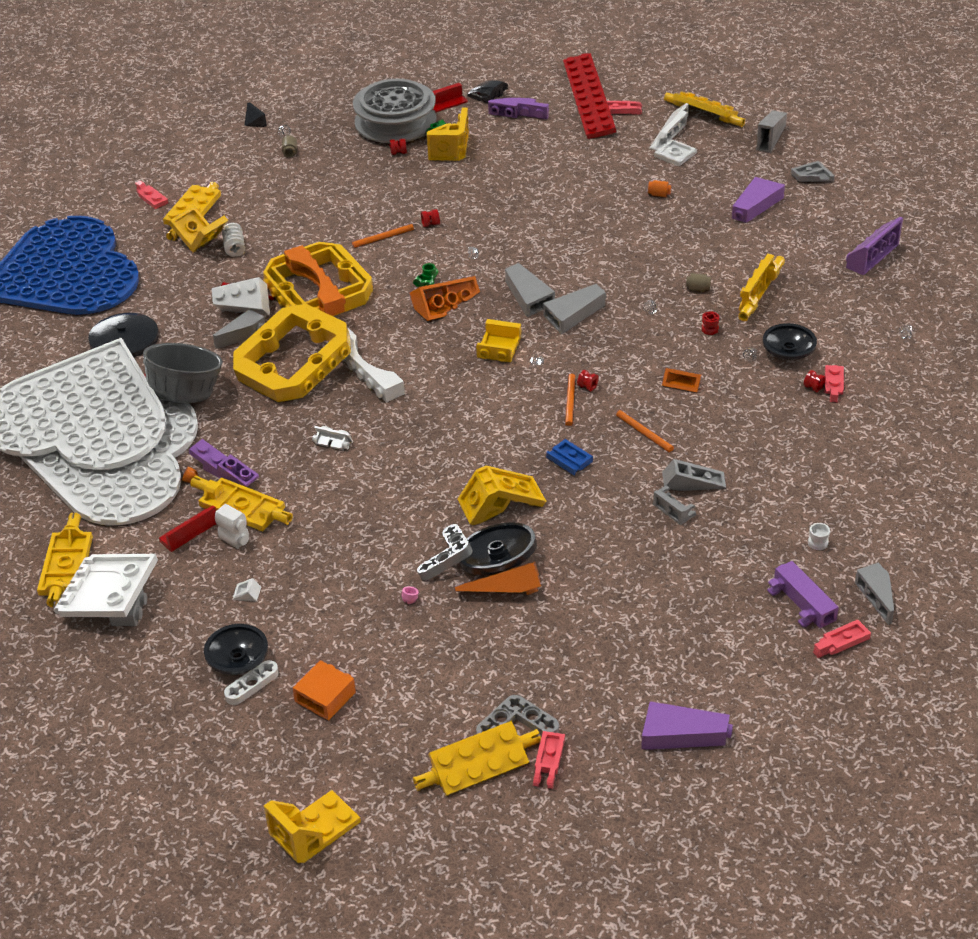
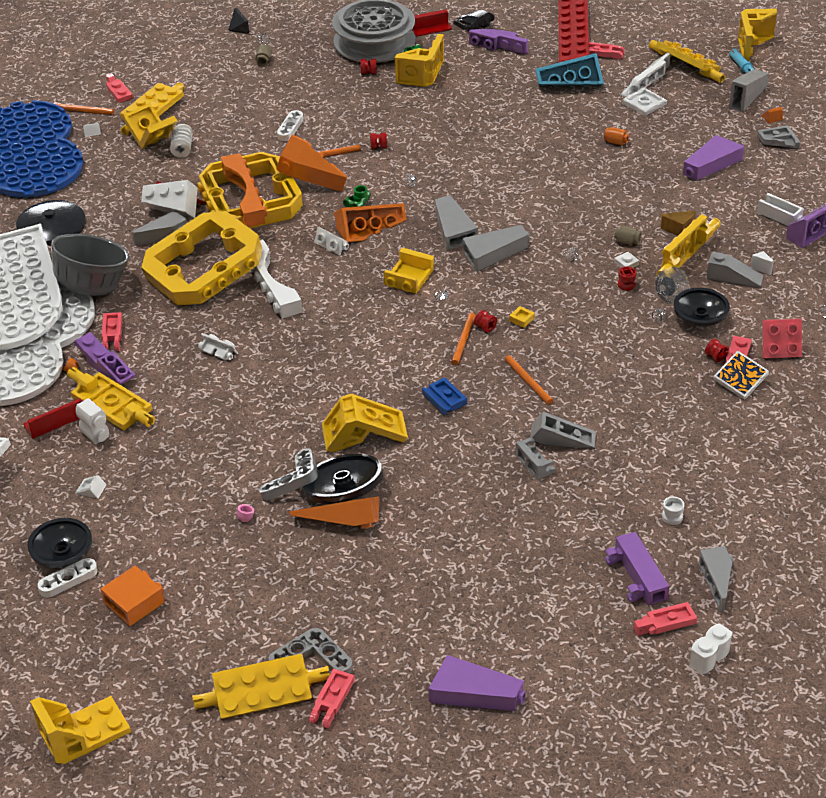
camera: 10 degrees right, 0 degrees up
(116, 219) = (76, 108): none -> orange bar
(136, 238) = (91, 129): none -> white slope
(220, 433) = (112, 329): none -> coral hinge
(335, 208) = (295, 119): none -> white beam
(369, 248) = (305, 163): none -> orange wedge
(412, 321) = (330, 241): none -> white hinge
(600, 132) = (573, 72): none -> medium azure wedge
(620, 372) = (521, 316): none -> yellow plate
(681, 380) = (580, 332): orange slope -> none
(703, 306) = (626, 259): none -> white plate
(742, 264) = (677, 221): none -> pearl gold slope
(755, 323) = (670, 283): none -> clear tile
(761, 71) = (755, 28): none -> yellow bracket
(762, 109) = (745, 66): none -> medium azure pin
(801, 152) = (773, 115): none -> orange slope
(806, 304) = (729, 269): none -> light grey slope
(832, 293) = (762, 263): none -> white slope
(834, 241) = (779, 209): none -> white window
(844, 401) = (741, 375): none -> tile
(873, 361) = (781, 338): none -> coral plate
(892, 659) = (710, 648): none -> white brick

